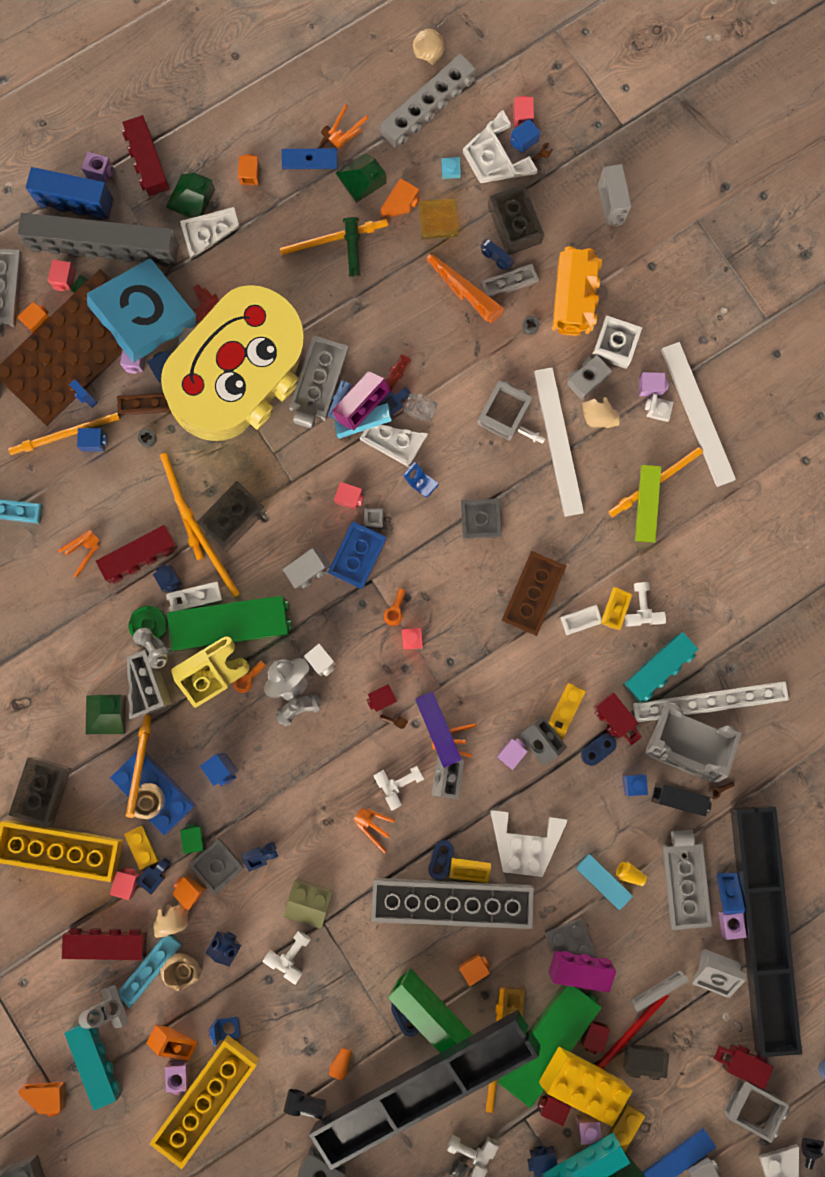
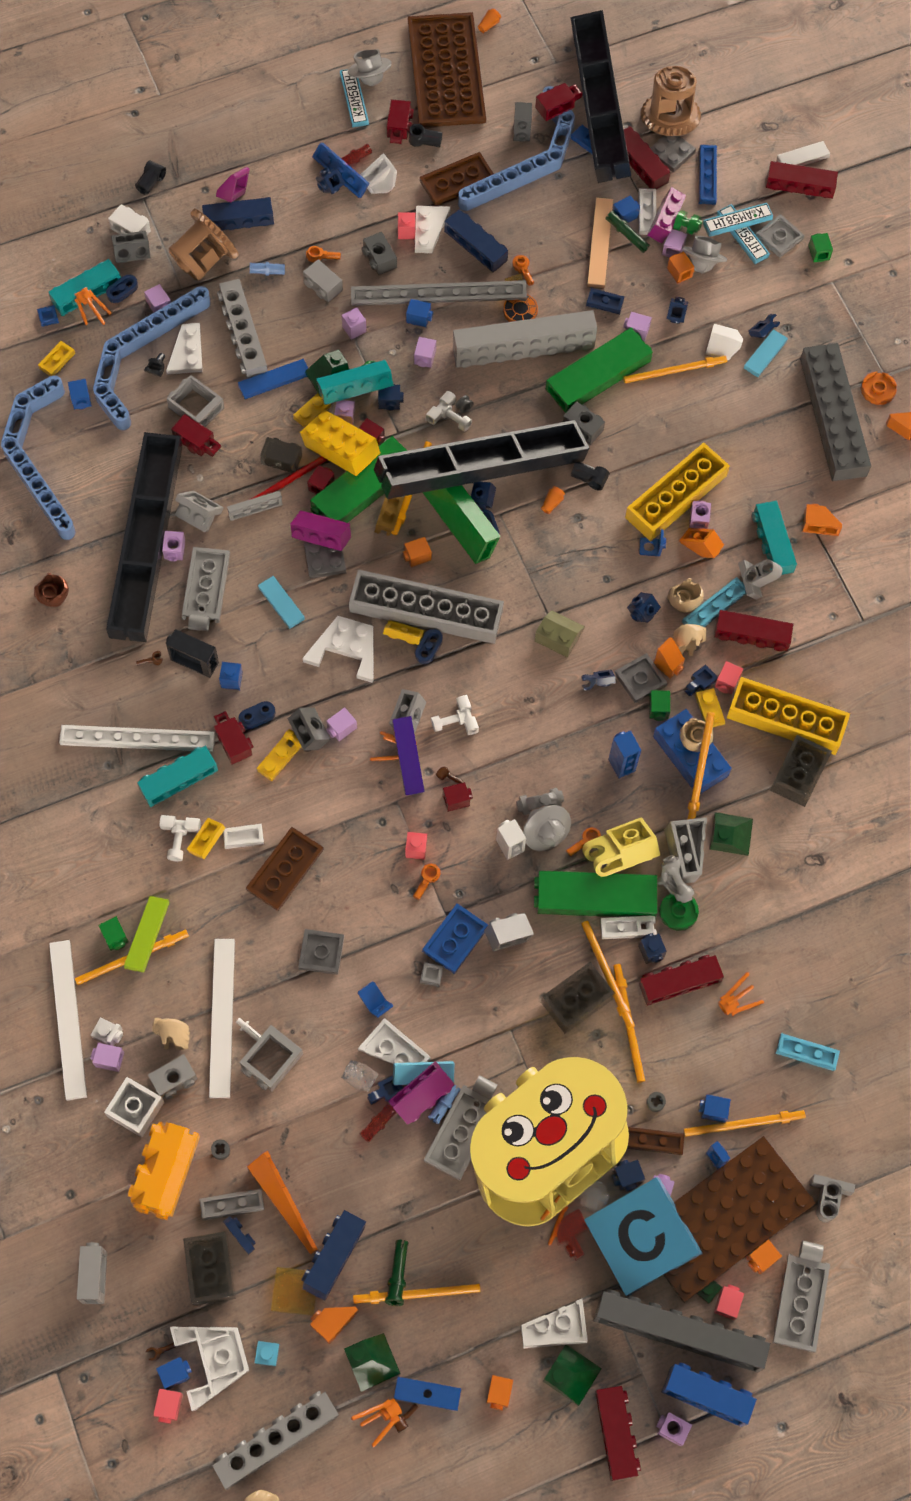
camera: 170 degrees left, 15 degrees down
(285, 962) = (588, 588): white bar -> none
(349, 496) = (452, 998): coral brick -> none
(365, 819) = (494, 692): orange plant -> none
(410, 249) = (334, 1255): none -> dark blue brick
(416, 1051) = (483, 494): none -> dark blue brick
(629, 873) = (255, 603): yellow cone -> none
(678, 498) = (113, 934): none -> green brick
(693, 745) = (165, 699): light grey windscreen -> none
(730, 893) = (168, 570): blue plate -> none

